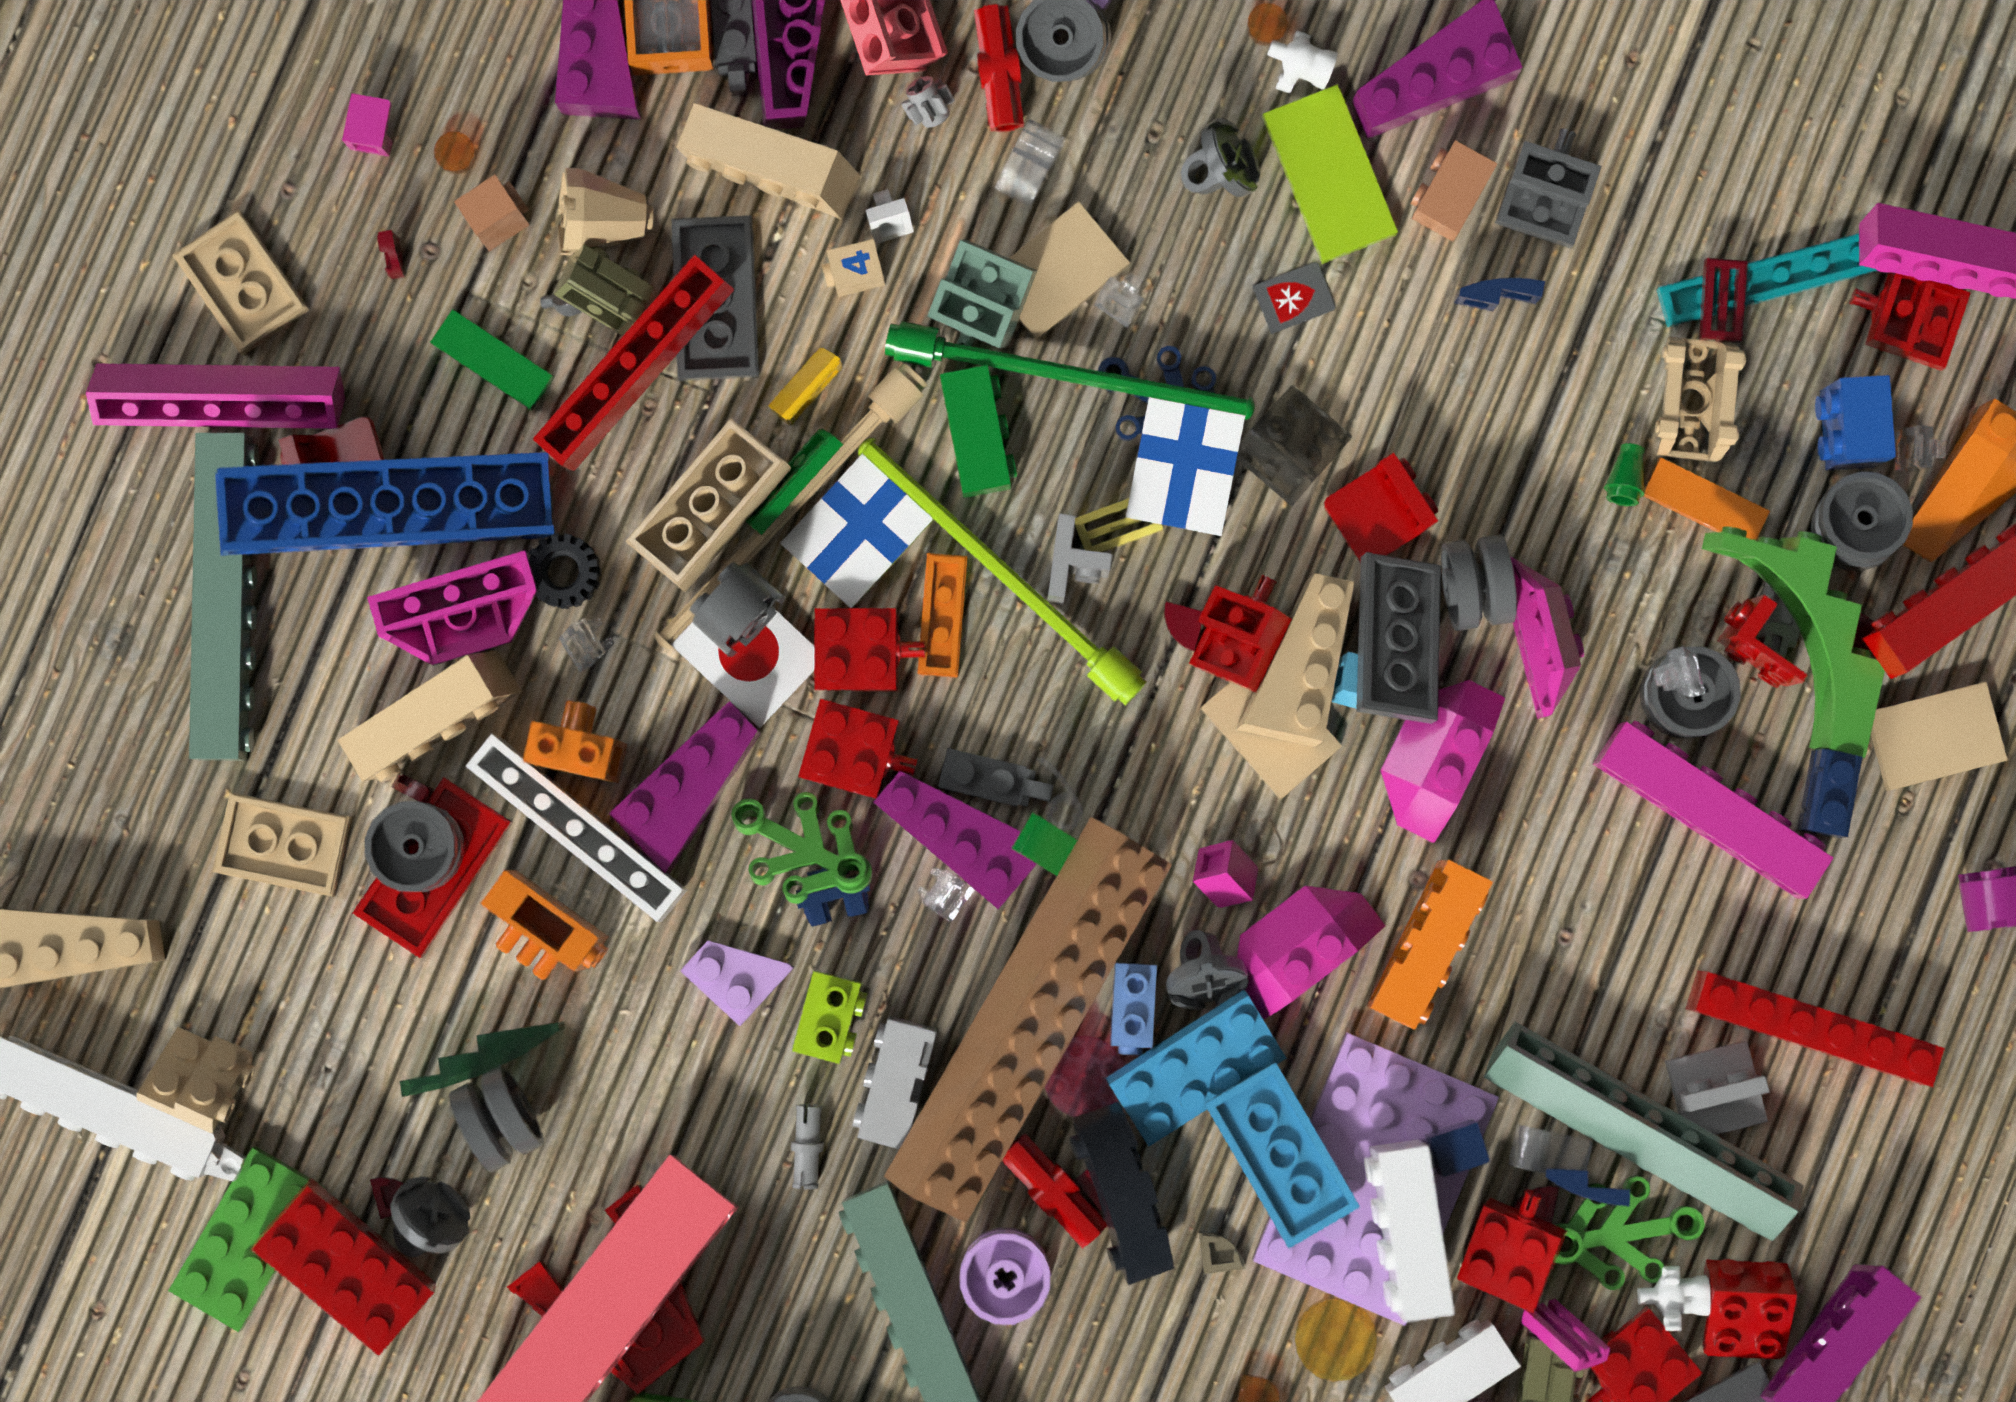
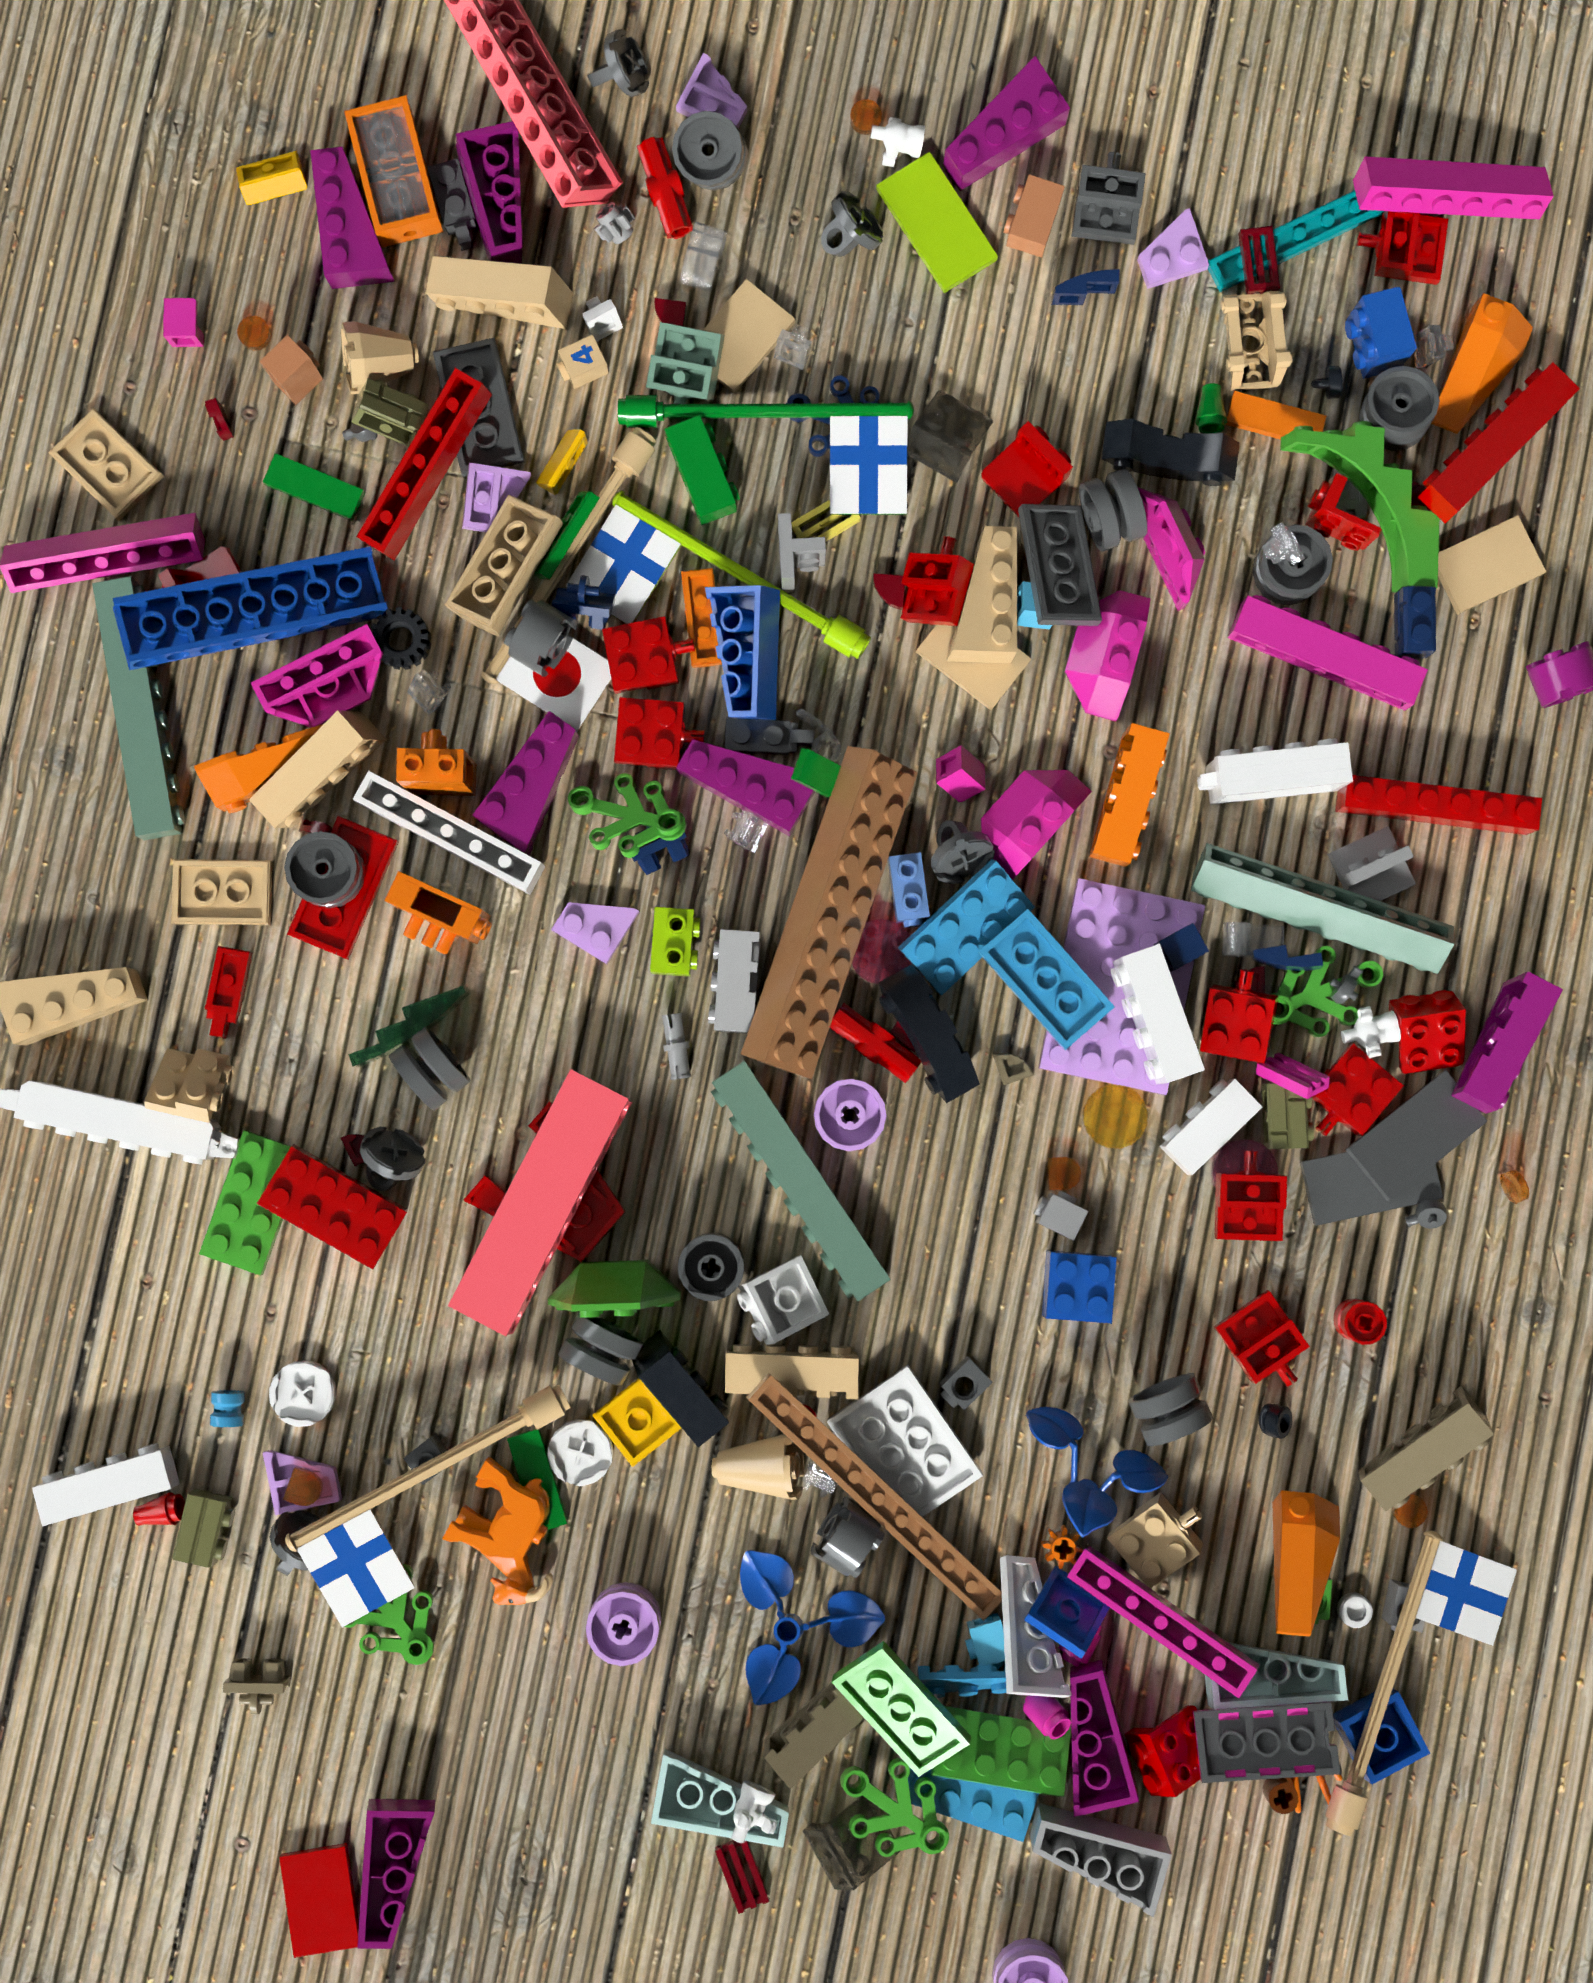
camera: 15 degrees left, 0 degrees up
(265, 967) = (227, 989): none -> red hinge
(332, 710) = (236, 778): none -> orange wedge
(705, 409) = (487, 491): none -> lavender wing
(799, 570) = (585, 600): none -> dark blue hips
(976, 225) = (670, 311): none -> dark red tile
(990, 669) = (748, 647): none -> blue wedge
(1294, 297) = (927, 323): dark grey sticker -> none
(1540, 515) = (1149, 452): none -> black brick
(1619, 268) = (1173, 253): none -> lavender wing
(1622, 953) = (1277, 772): none -> white piece
(1653, 1235) = (1345, 987): none -> dark grey piece
(1782, 470) = (1331, 382): none -> black tile

